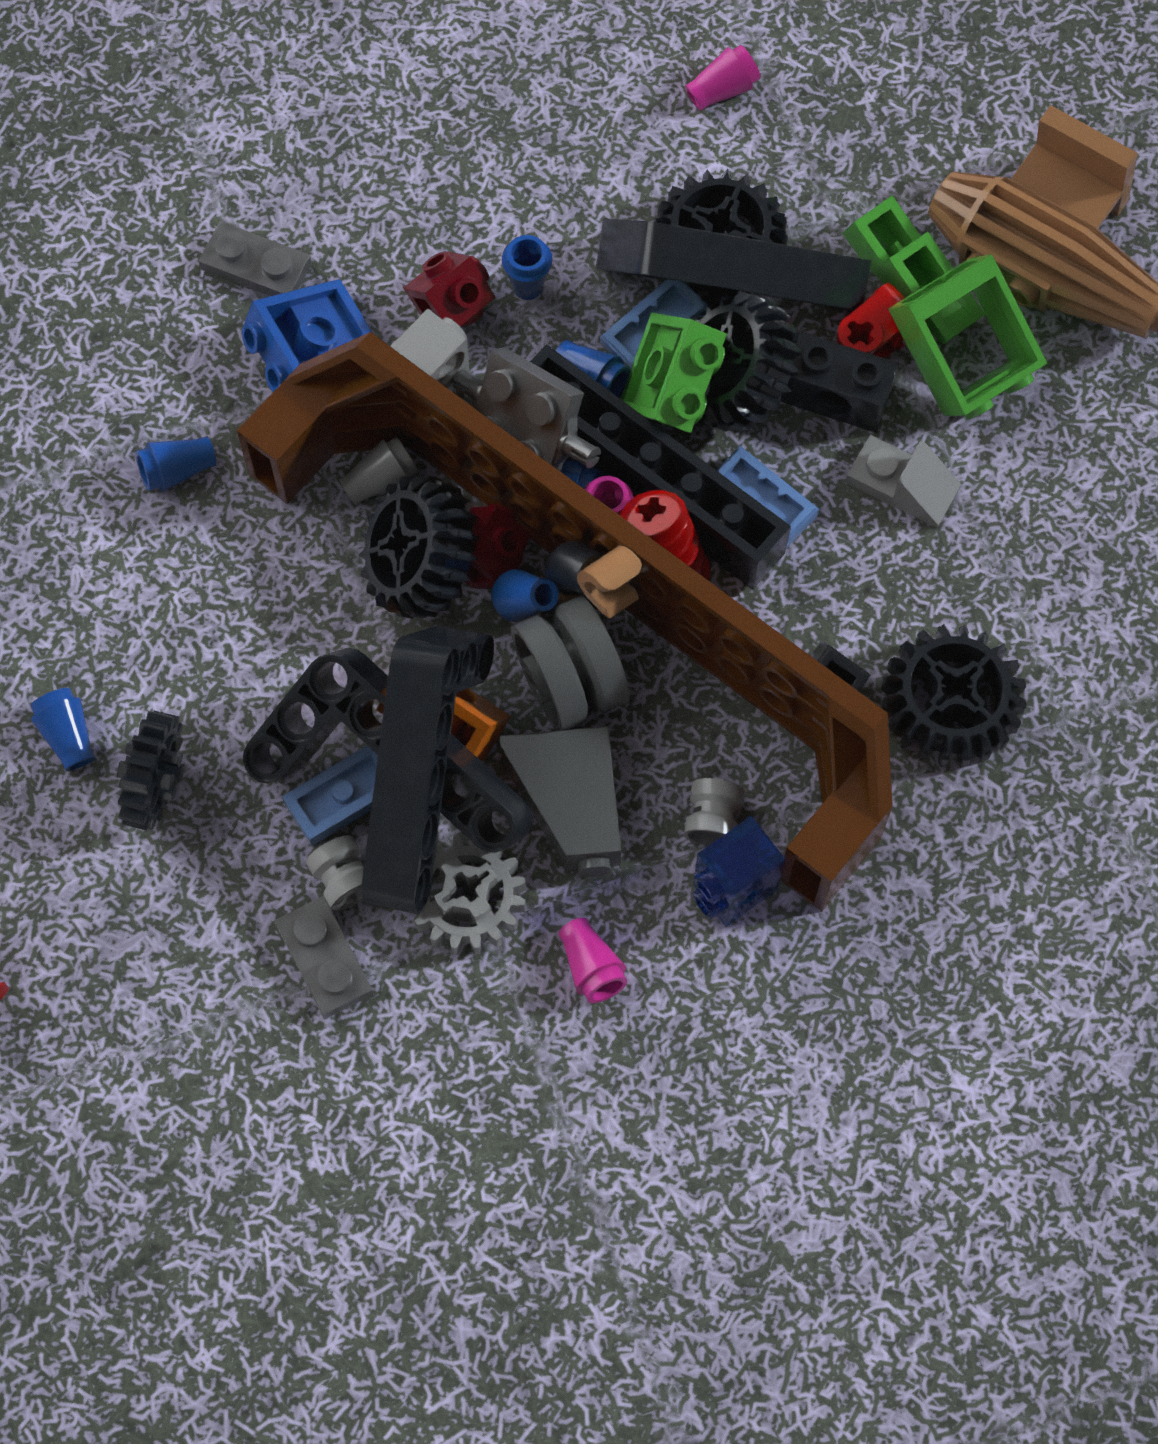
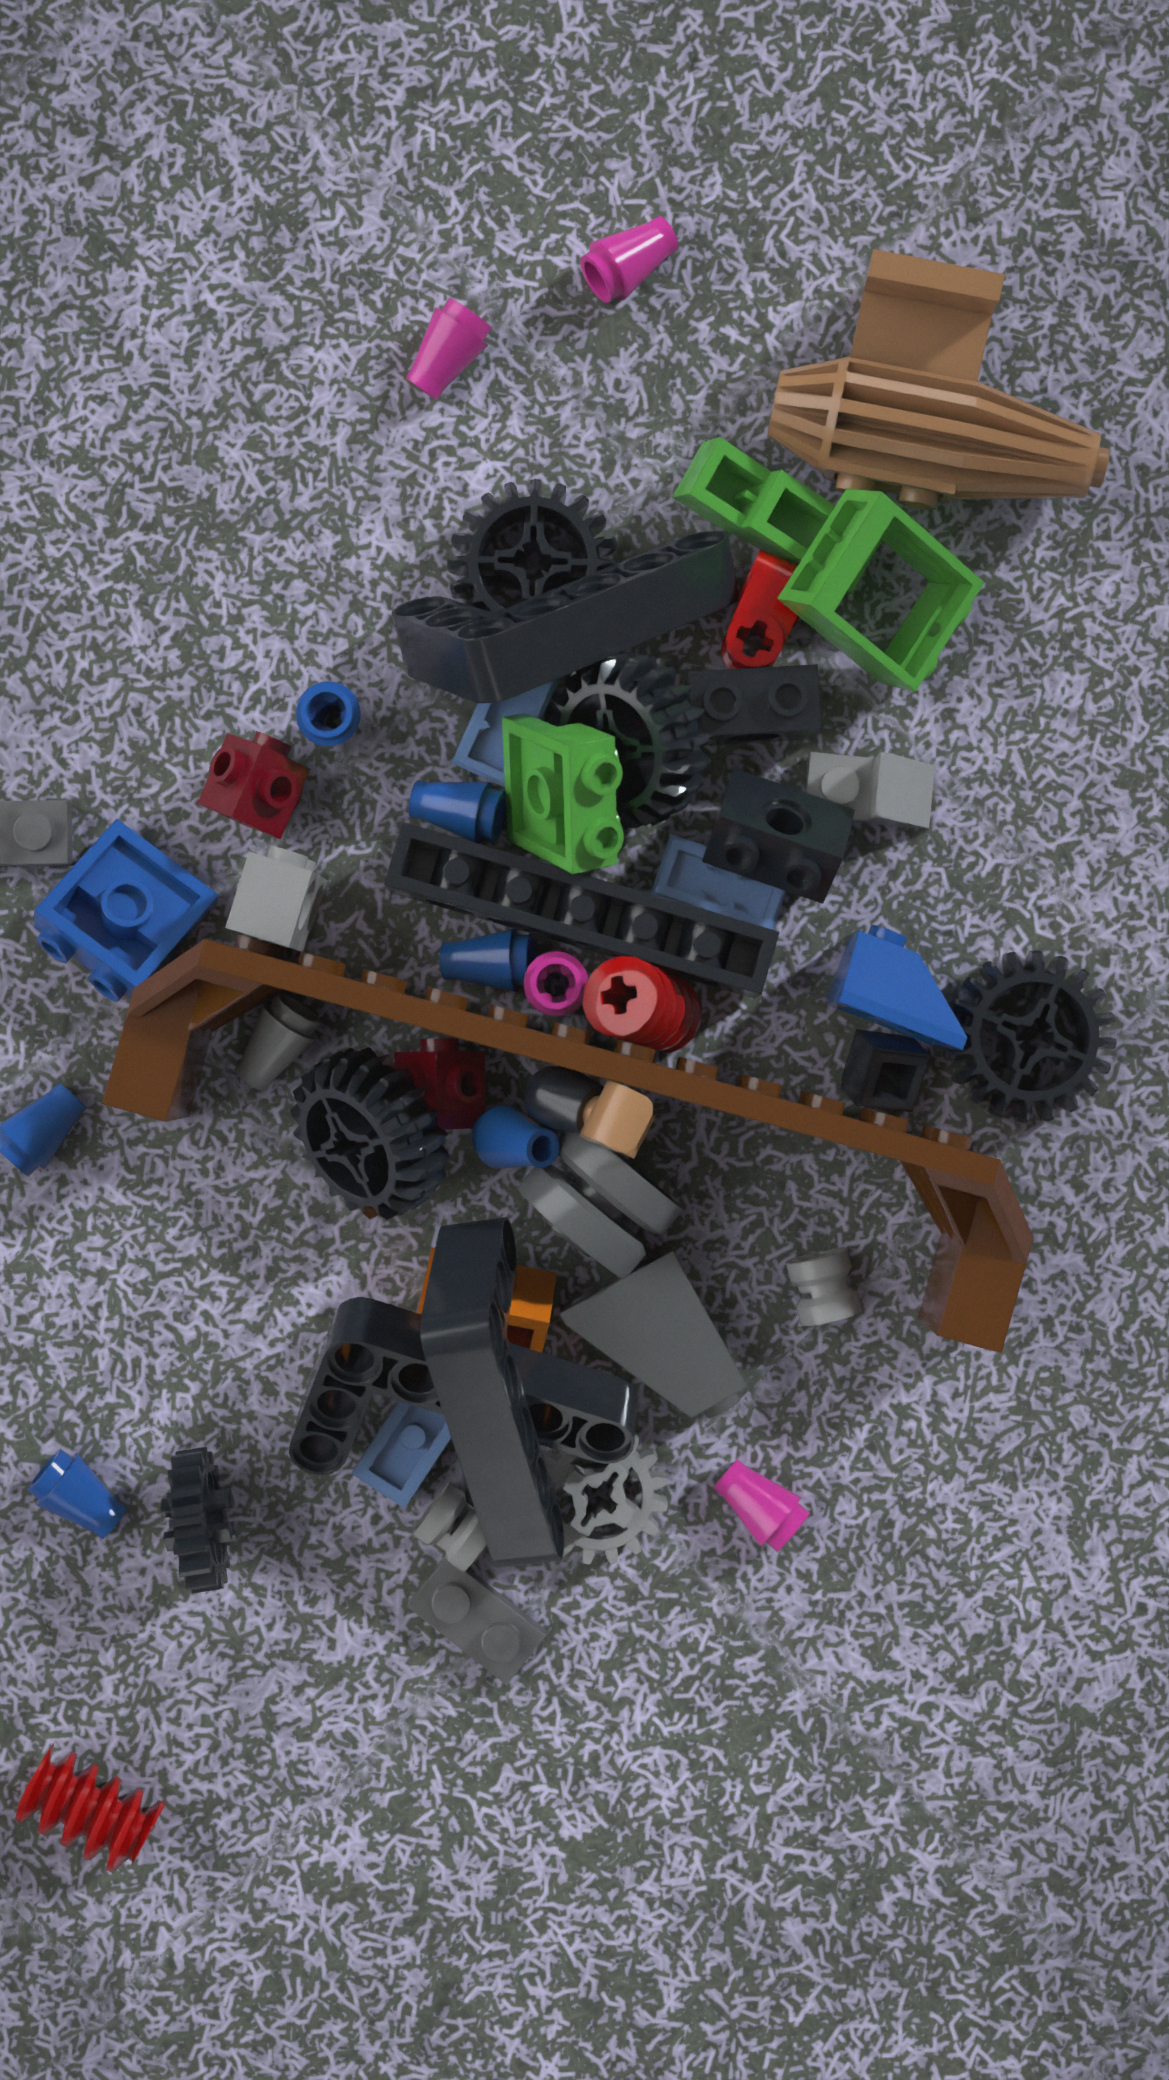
camera: 30 degrees left, 20 degrees up
(530, 407) = (419, 927): flat silver plate -> none
(736, 872) = (883, 1362): clear blue brick -> none
(820, 473) = (779, 836): none -> black brick
(857, 615) = (893, 989): none -> blue slope
(875, 71) = (627, 258): none -> dark pink cone

